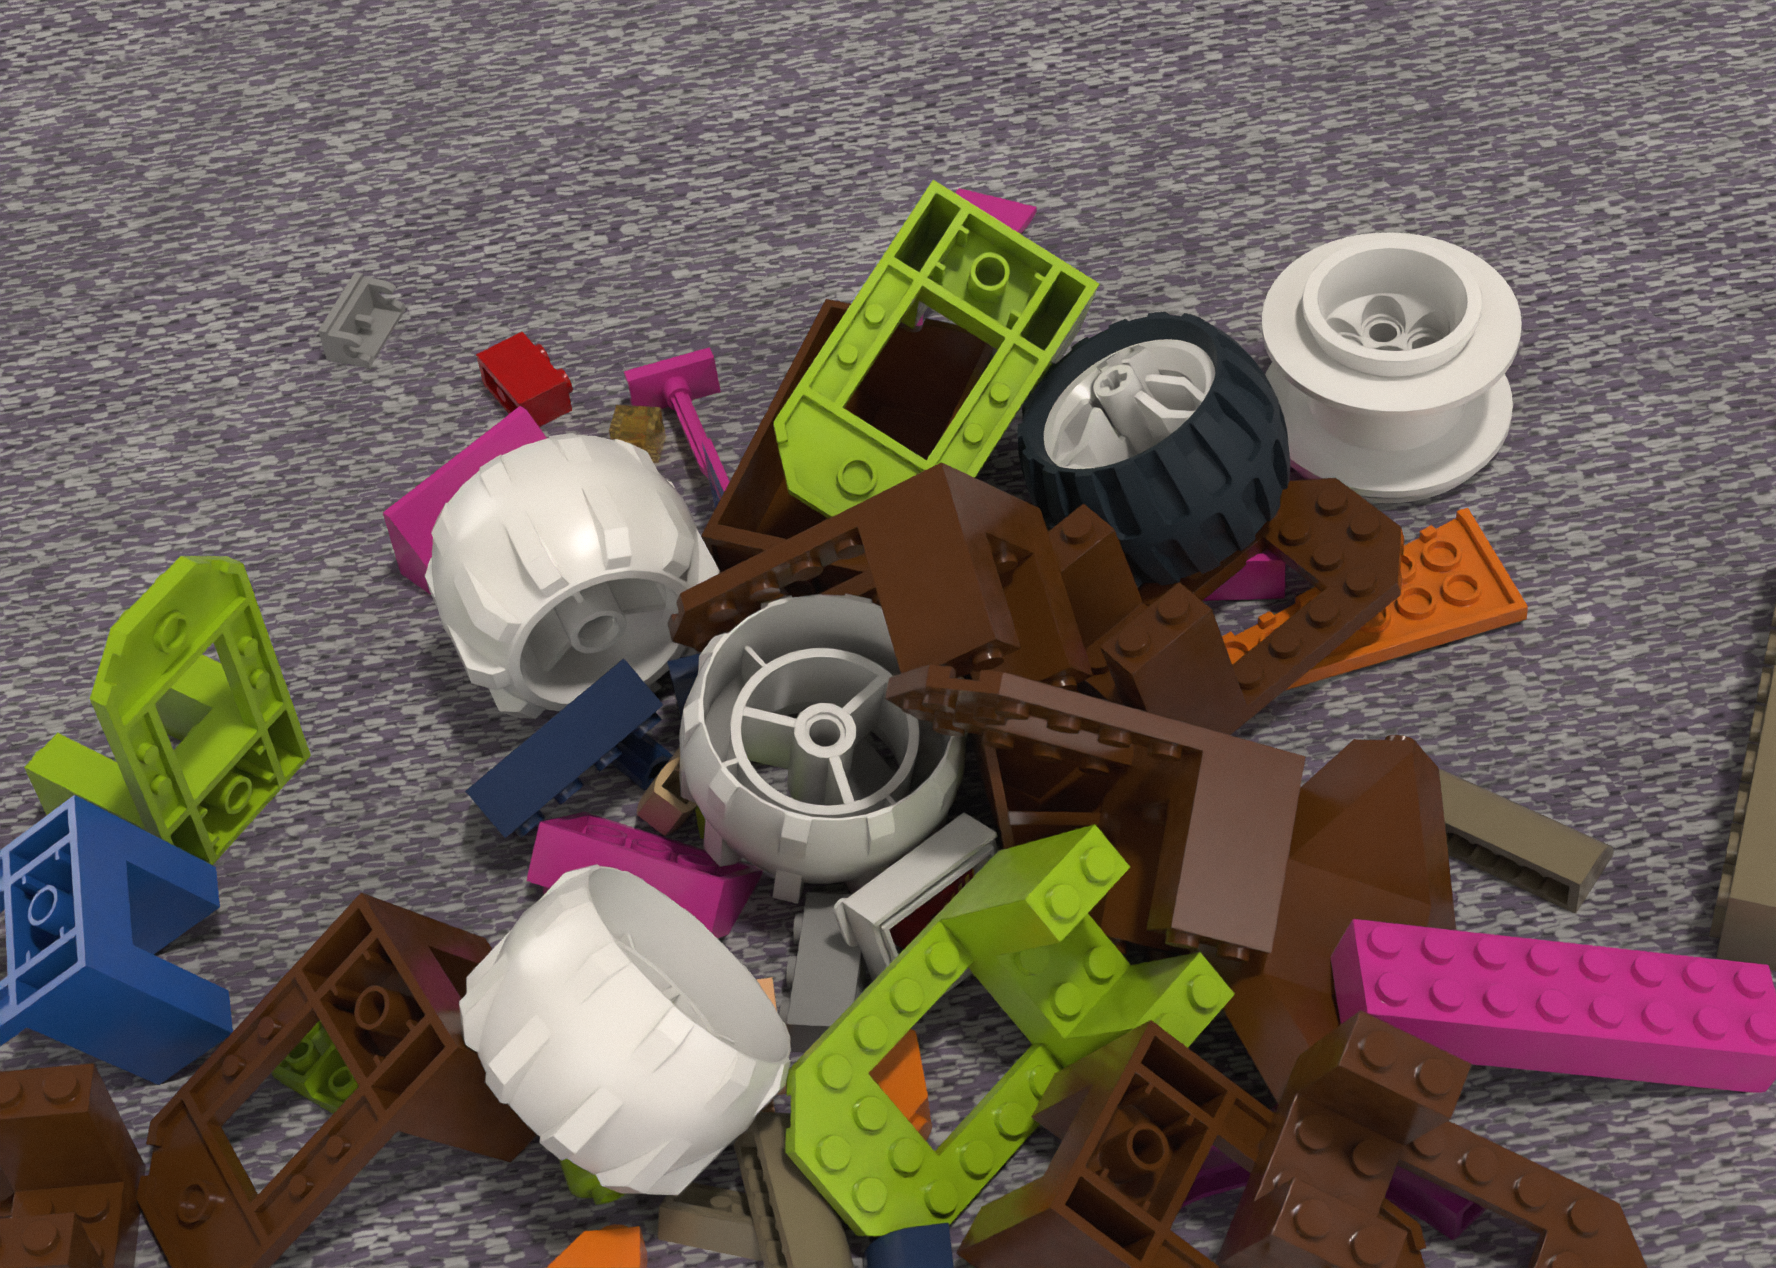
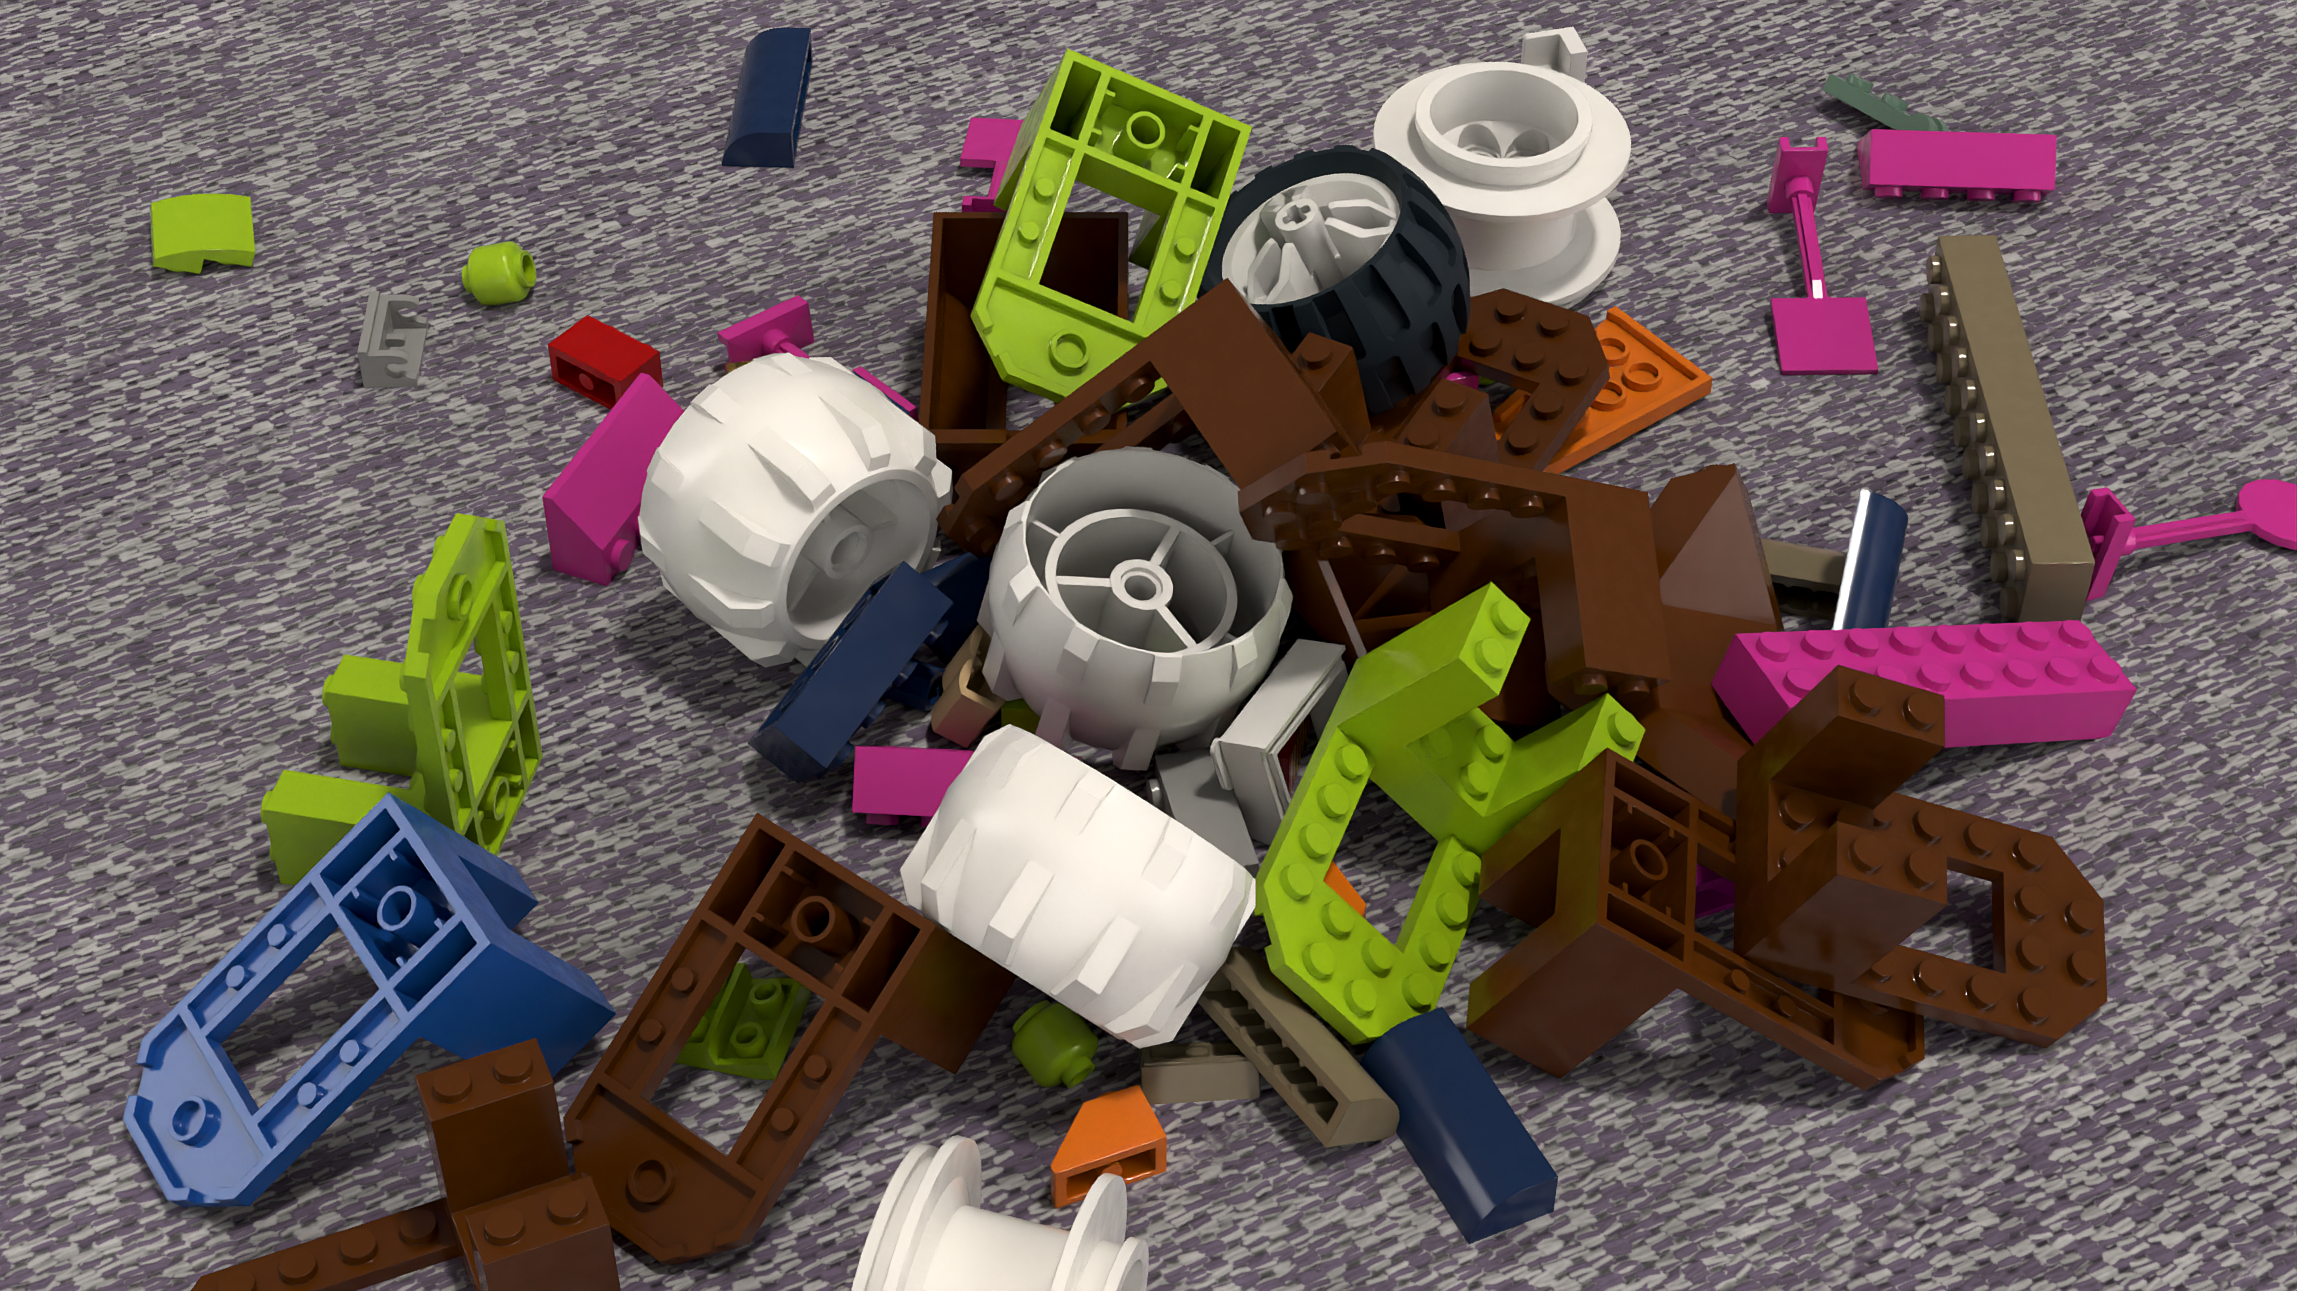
camera: 25 degrees left, 5 degrees down
(257, 183) = (201, 228): none -> lime slope
(477, 272) = (499, 273): none -> lime head
(787, 140) = (770, 99): none -> dark blue brick
(1531, 226) = (1556, 50): none -> white panel
(1560, 869) = (1871, 563): none -> dark blue brick
(1670, 576) = (1816, 331): none -> dark pink piece

